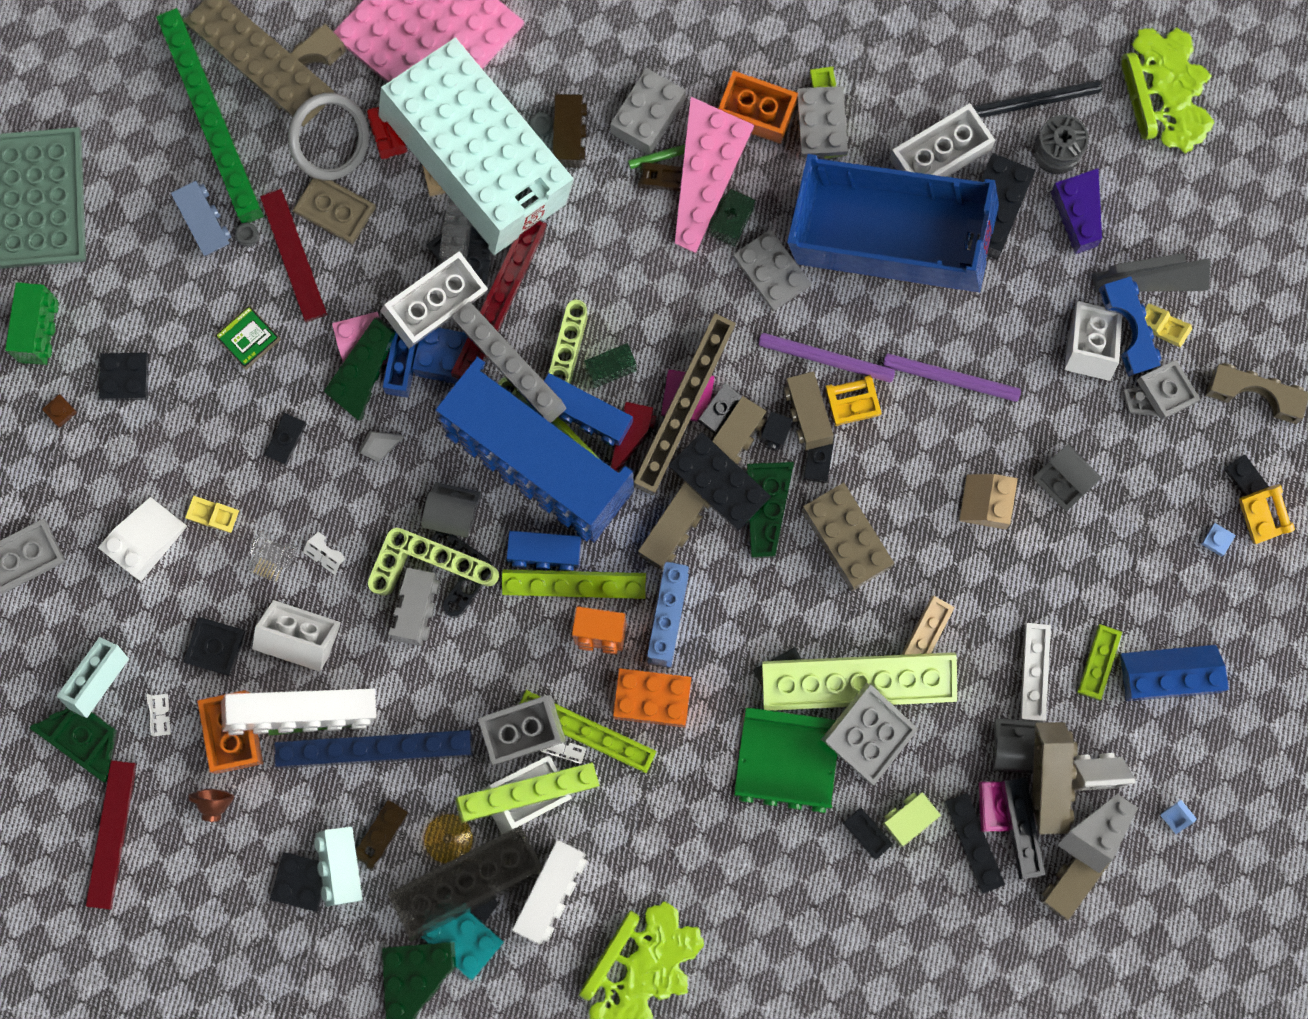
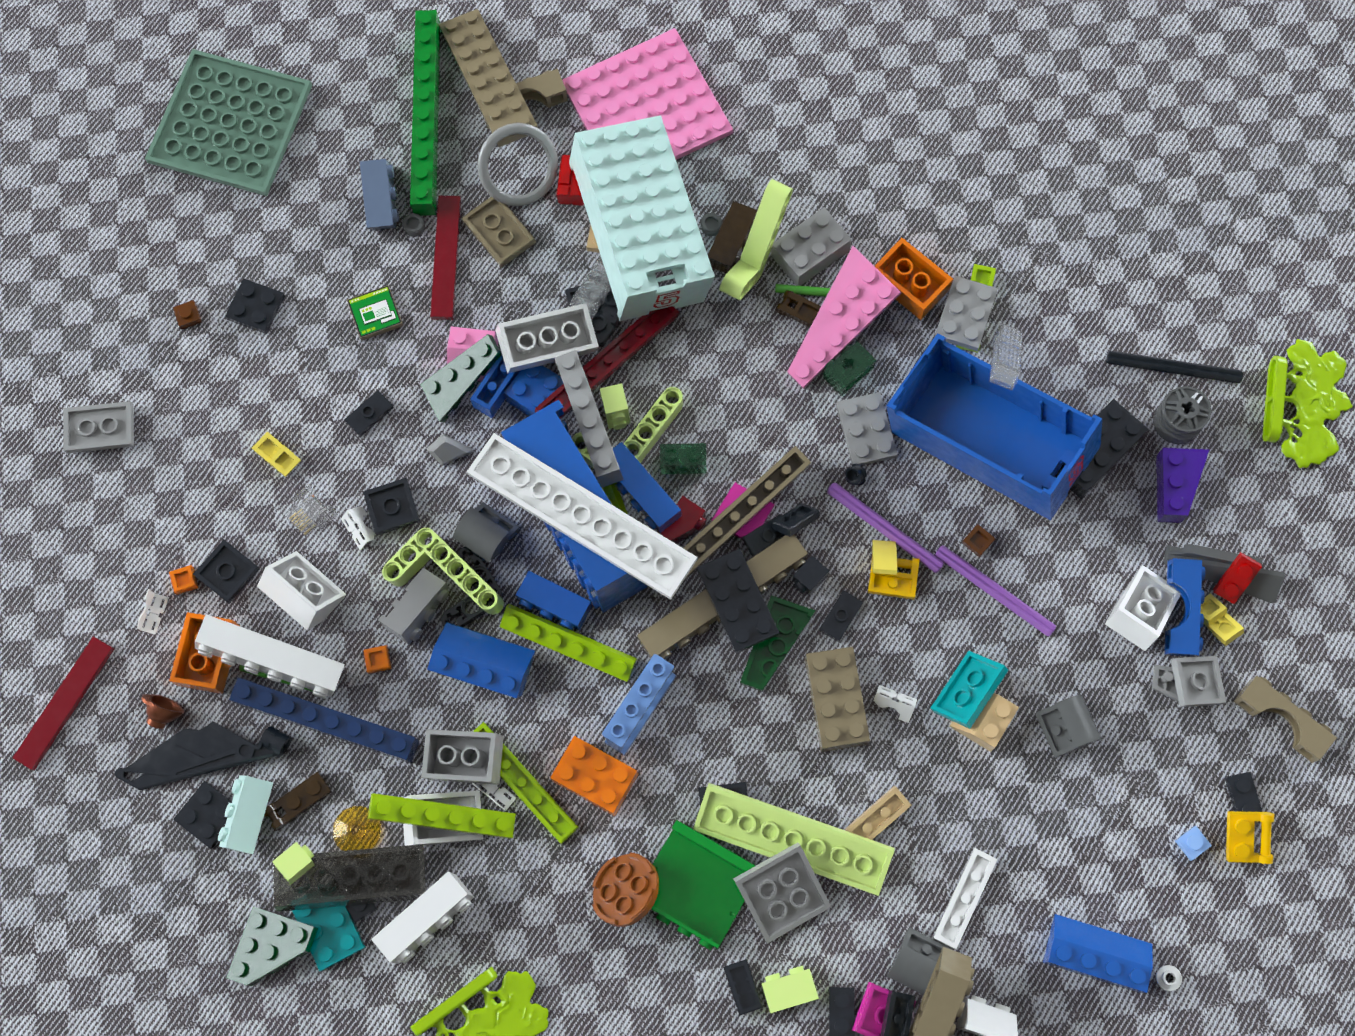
camera: 25 degrees right, 5 degrees down
(31, 324) = (194, 230): green brick -> none
(82, 739) = (76, 606): dark green wing -> none
(92, 677) = (107, 555): light aqua brick -> none
(142, 538) = (206, 452): white slope -> none
(175, 671) = (183, 580): none -> orange tile
(267, 827) = (200, 753): none -> black wing
(348, 521) = (391, 506): none -> black plate
(398, 672) = (377, 659): none -> orange tile
(411, 890) = (294, 862): none -> yellowish green brick
(500, 632) = (482, 660): none -> blue slope
(525, 340) = (615, 406): none -> yellowish green brick
(547, 459) = (582, 516): none -> white plate
(598, 126) = (759, 242): none -> yellowish green beam
(599, 630) = (571, 692): orange brick -> none
(725, 790) = (625, 889): none -> dark orange tile
(741, 383) = (795, 519): none -> black plate
(776, 321) = (851, 475): none -> black plate
(808, 411) = (847, 569): dark tan brick -> none
(838, 386) = (884, 557): none -> light yellow slope
(881, 152) = (1006, 357): none -> clear beam
(912, 522) = (903, 709): none -> white piece
(918, 336) = (978, 540): none -> reddish brown plate
(945, 145) = (1074, 375): white brick -> none
(965, 479) = (969, 689): none -> teal plate
(1099, 662) = (1031, 914): lime tile -> none
(1168, 279) = (1237, 578): none -> red plate
(1235, 672) = (1161, 978): none -> white plate

